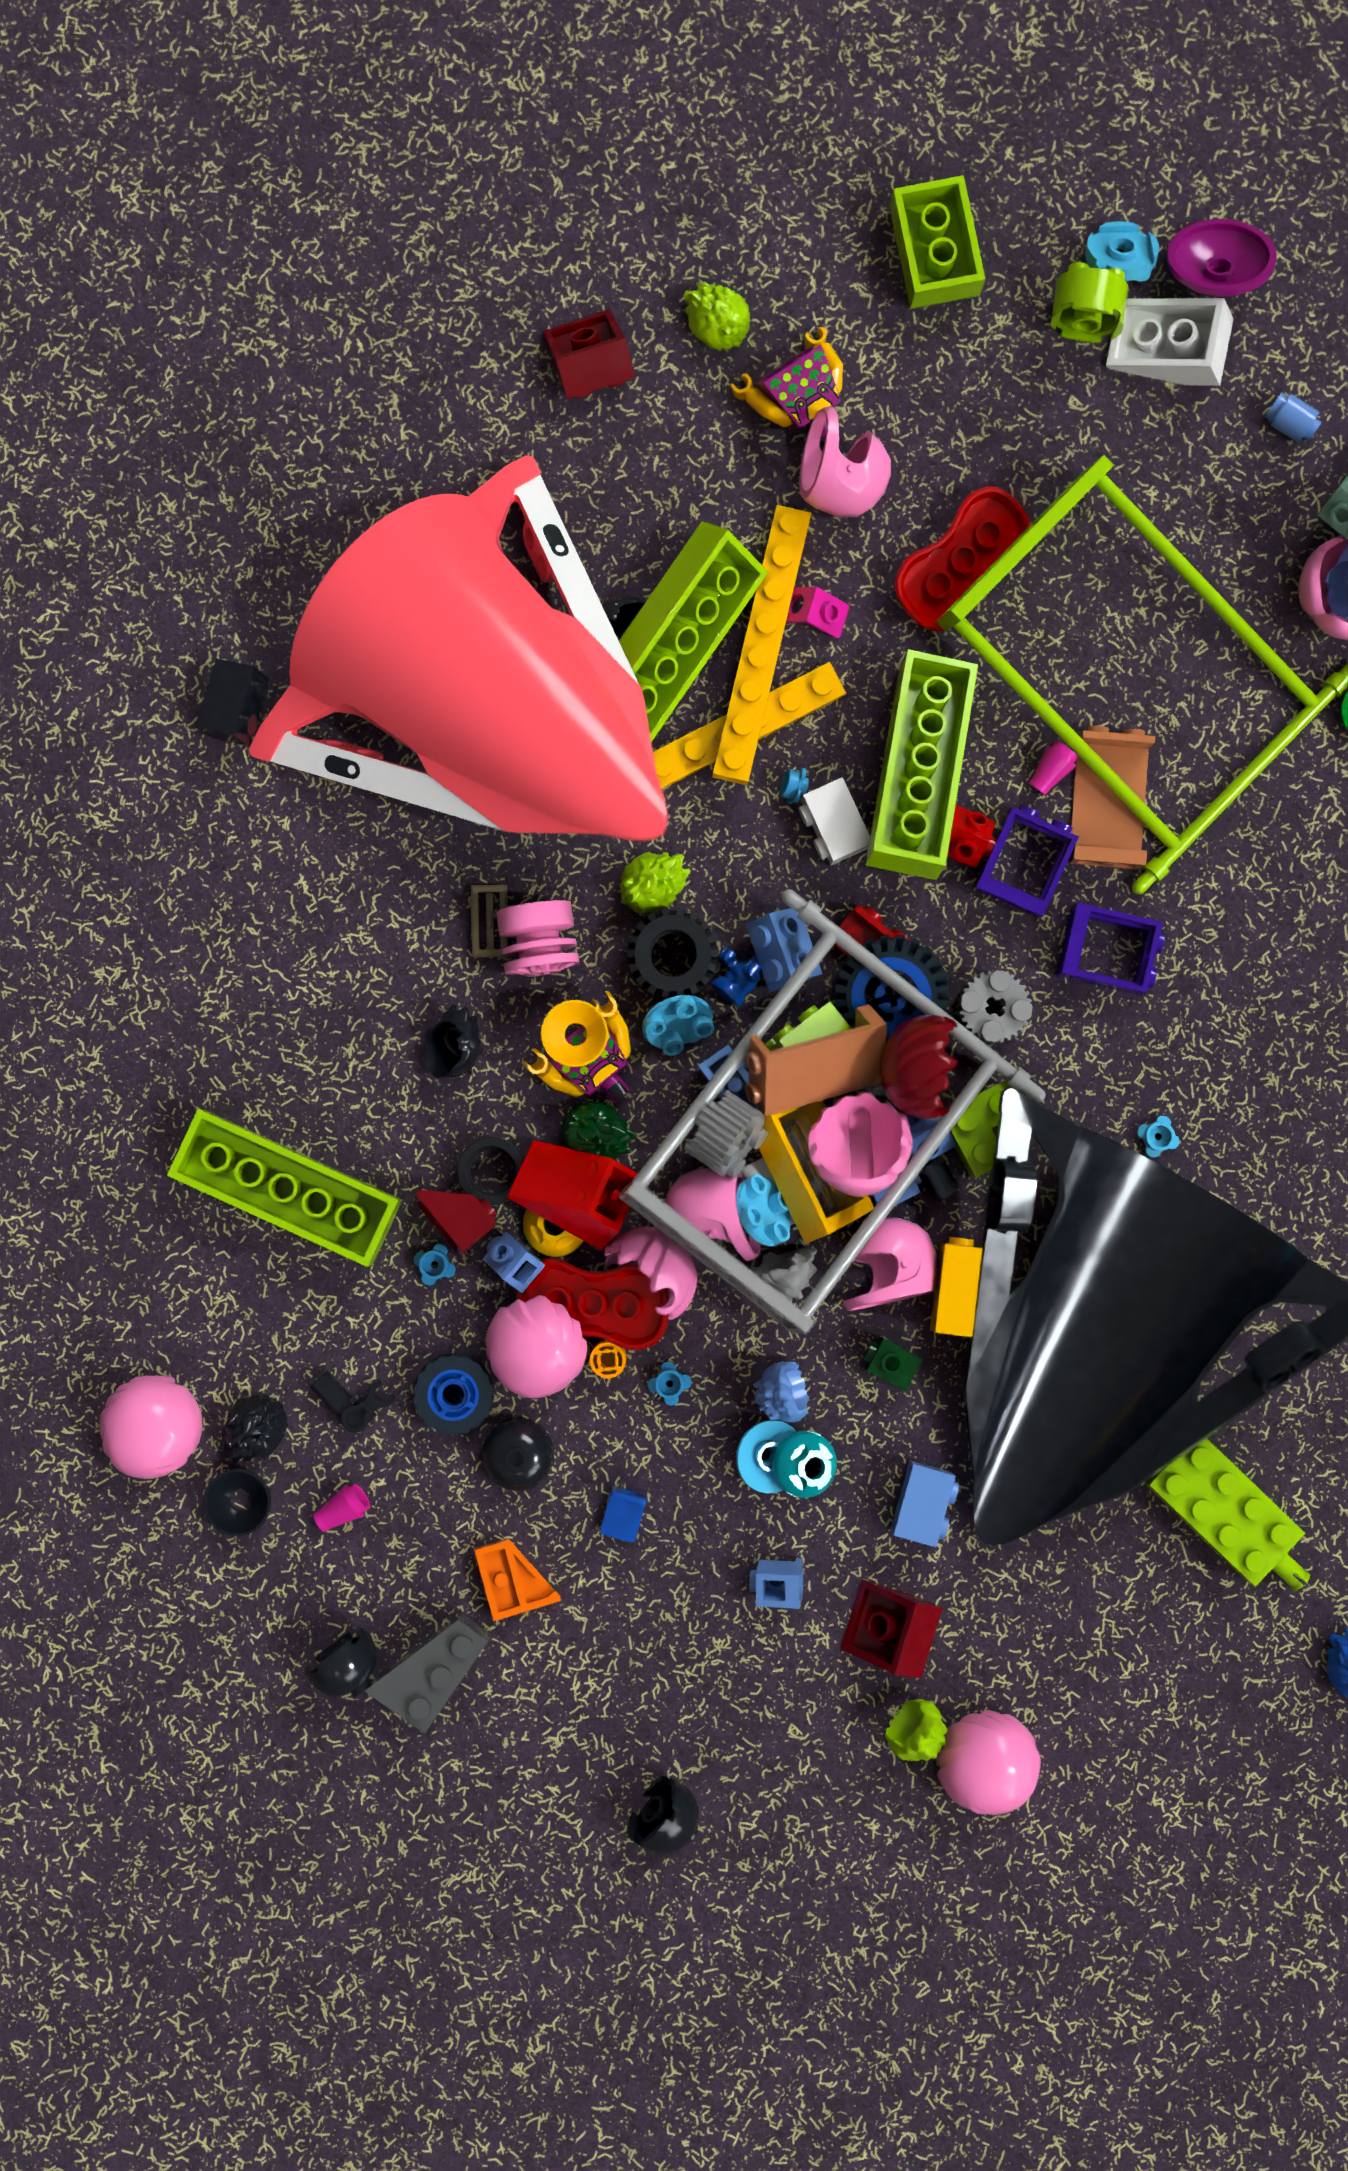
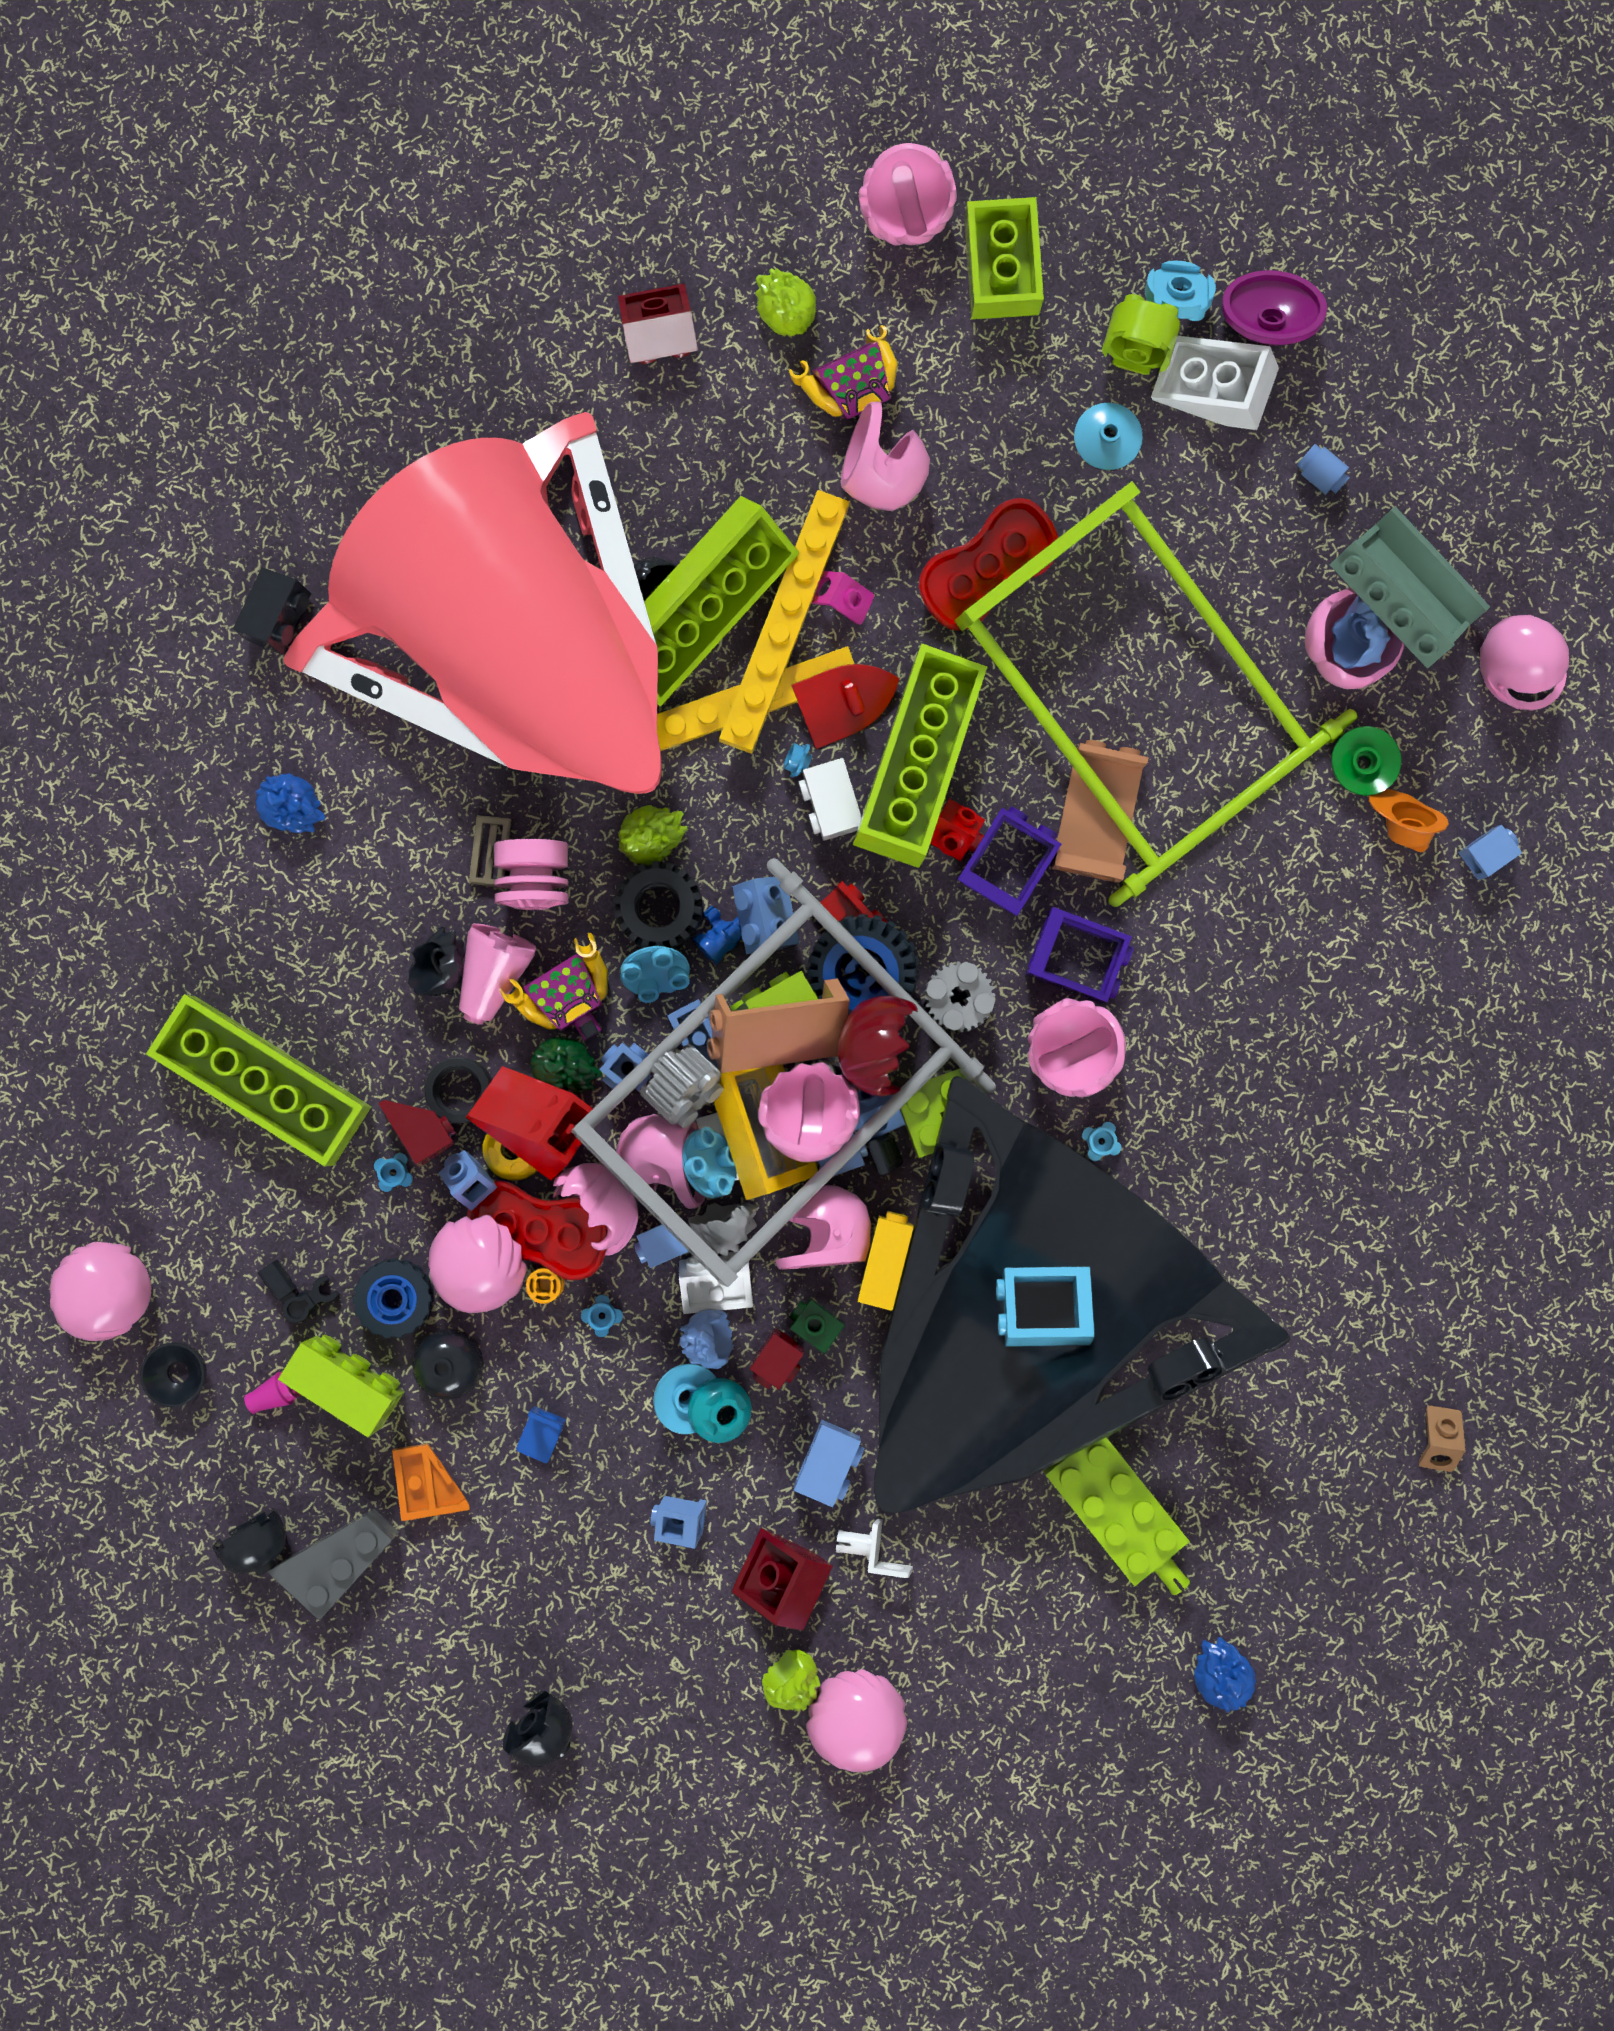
camera: 15 degrees right, 0 degrees up
(254, 1428) = (199, 1305): black hair -> none
(275, 899) = (288, 804): none -> blue hair
(414, 1488) = (342, 1384): none -> lime brick
(506, 1040) = (488, 966): none -> bright pink cone
(560, 1019) = (533, 969): yellow piece -> none
(650, 1114) = (614, 1060): none -> medium blue brick
(720, 1303) = (658, 1246): none -> medium blue brick
(773, 1343) = (704, 1292): none -> white bracket
(831, 189) = (907, 195): none -> bright pink piece
(832, 718) = (843, 700): none -> red shield
(857, 1404) = (777, 1360): none -> dark red brick
(976, 1583) = (869, 1546): none -> white bracket
(1053, 766) = (1048, 774): dark pink cone -> none
(1061, 426) = (1101, 450): none -> medium azure dish
(1140, 1045) = (1090, 1060): none -> bright pink piece
(1163, 1304) = (1083, 1311): none -> medium azure window

